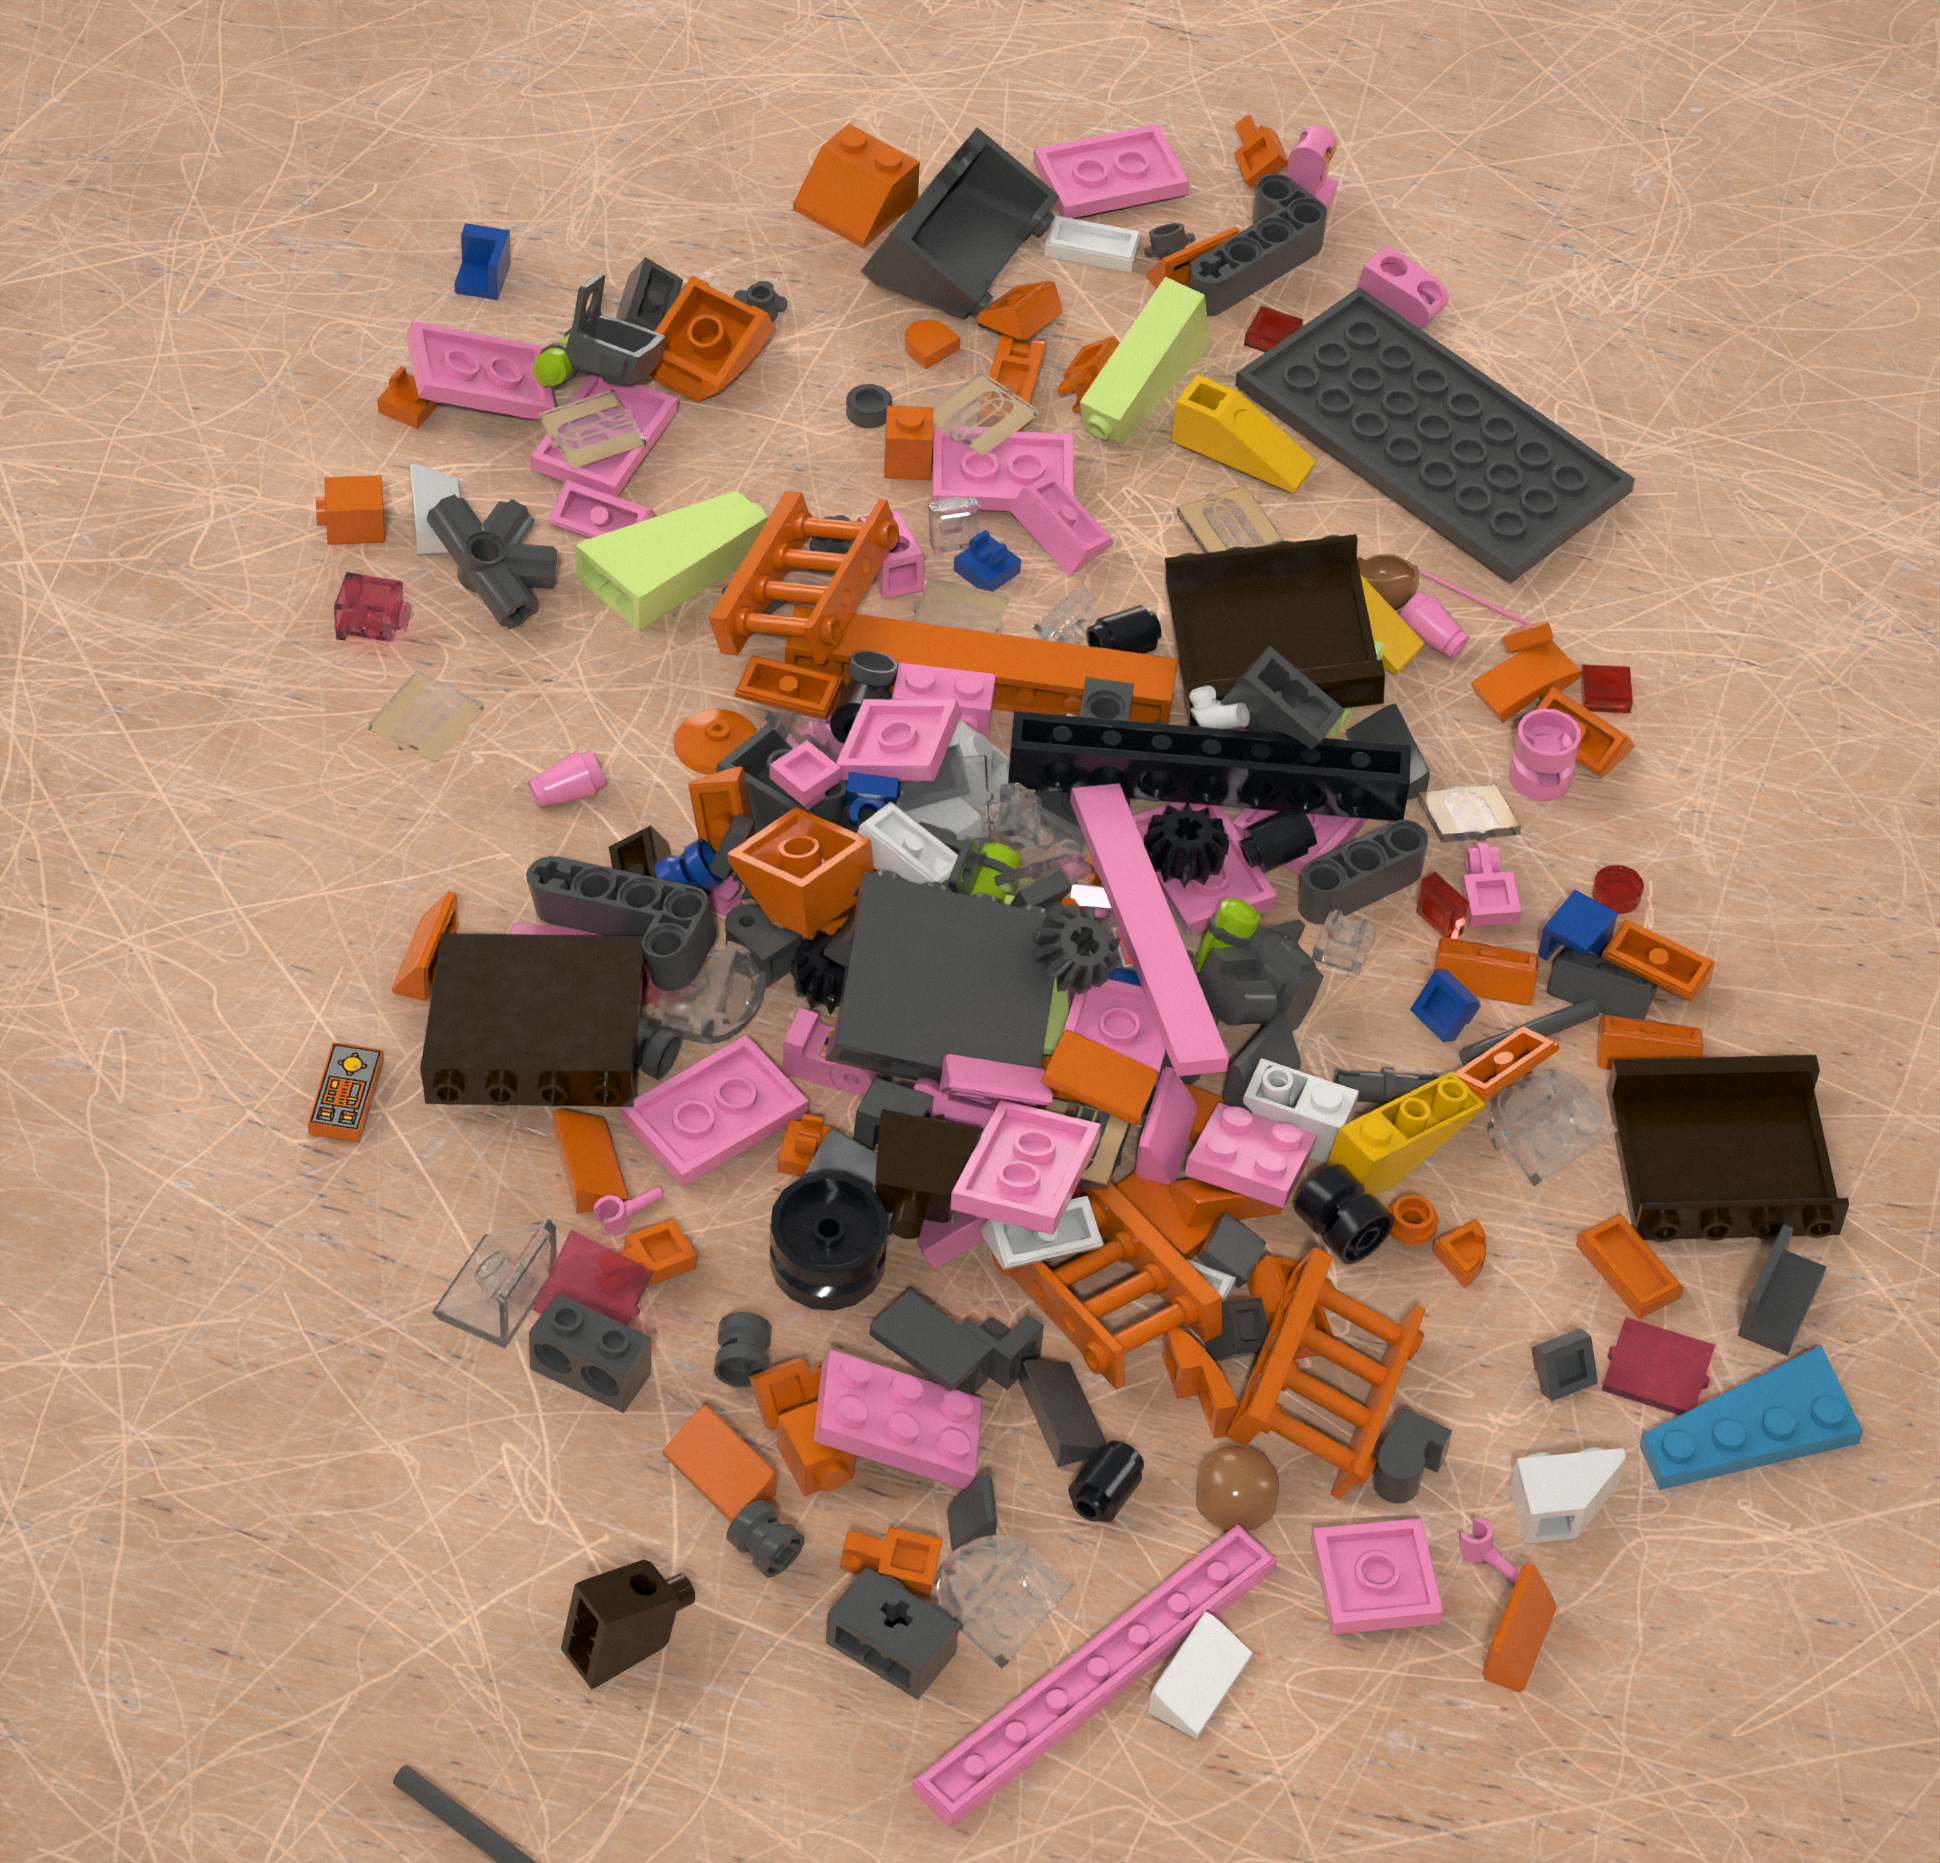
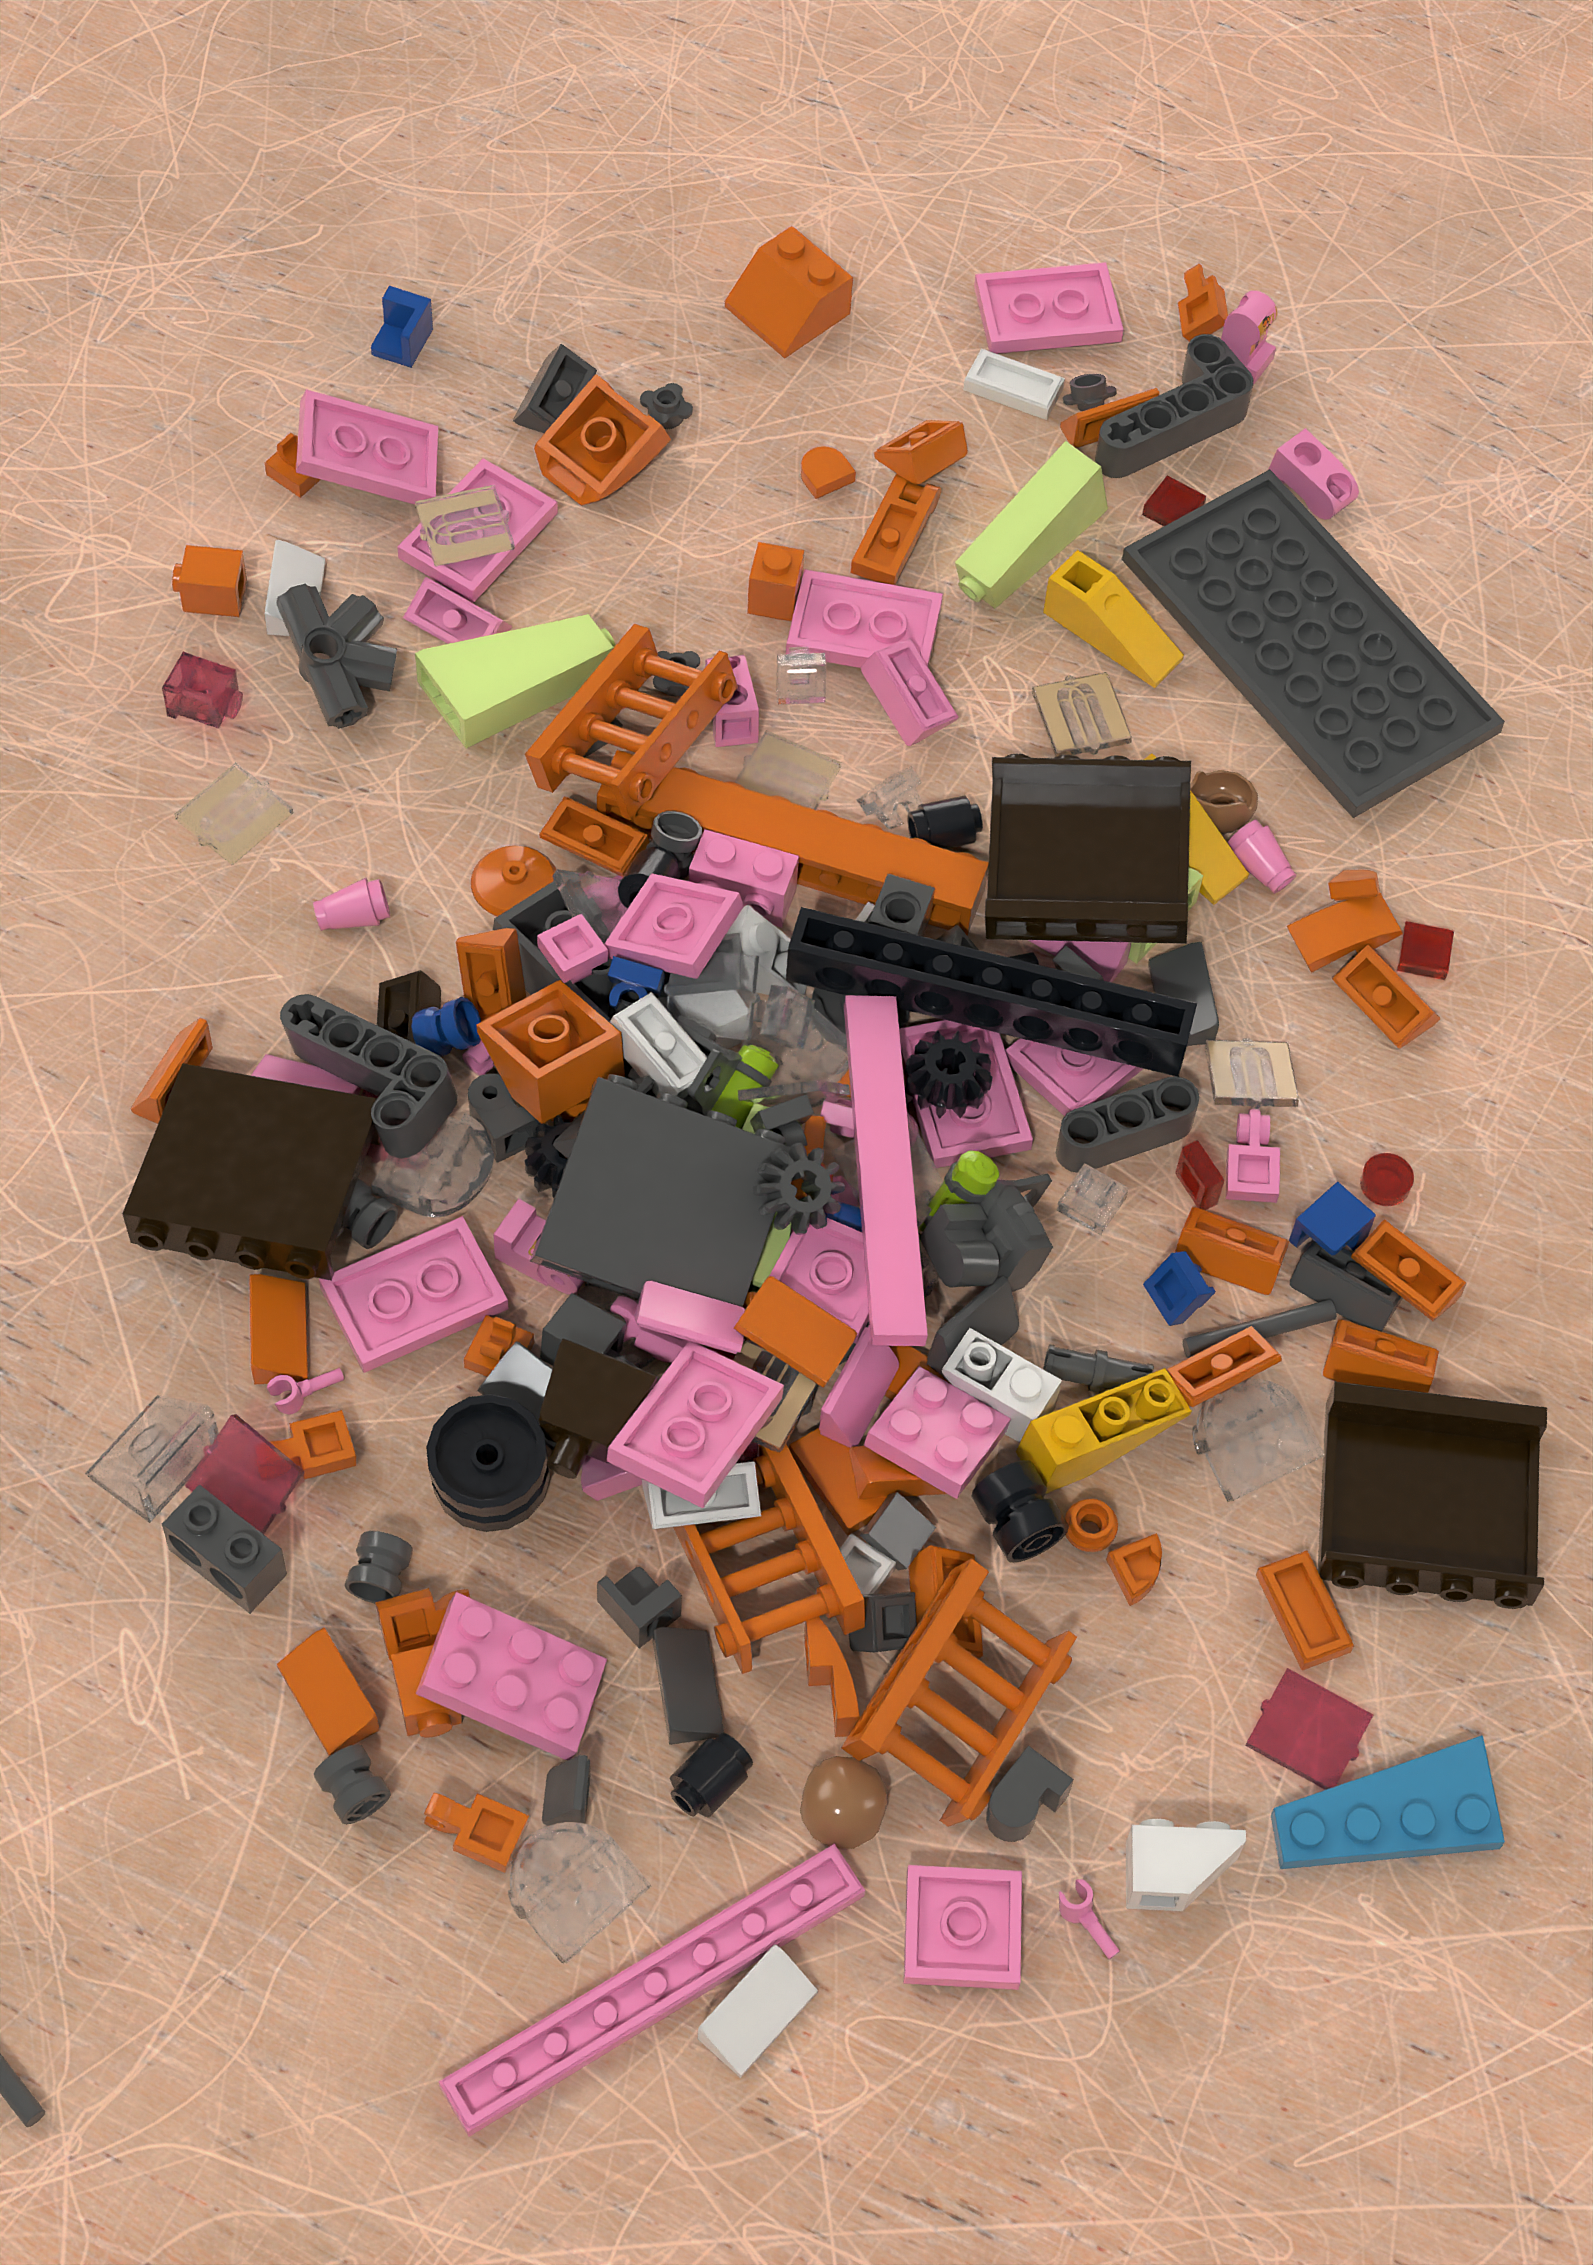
camera: 10 degrees right, 10 degrees up
(345, 1092) = (57, 1217): tile -> none
(599, 345) = (488, 438): dark grey piece -> none
(622, 1619) = (187, 1855): dark brown torso -> none
(734, 837) = (490, 1005): dark grey tile -> none
(868, 405) = (746, 530): dark grey tile -> none
(892, 1632) = (463, 1941): dark grey brick -> none
(933, 1343) = (565, 1595): dark grey panel -> none
(963, 229) = (883, 354): dark grey windscreen -> none
(982, 413) = (856, 560): clear piece -> none
(987, 563) = (826, 723): blue tile -> none
(1086, 368) = (973, 522): orange plate -> none
(1212, 714) = (1002, 937): white arm -> none
(1277, 840) = (1043, 1081): black brick -> none
(1284, 700) = (1073, 937): dark grey arch -> none
(1474, 597) = (1312, 827): bright pink piece -> none
(1520, 1631) = (1097, 2014): orange slope -> none
(1544, 754) = (1342, 1020): bright pink wheel -> none
(1565, 1364) = (1210, 1716): dark grey tile -> none
(1781, 1297) = (1454, 1672): dark grey panel -> none

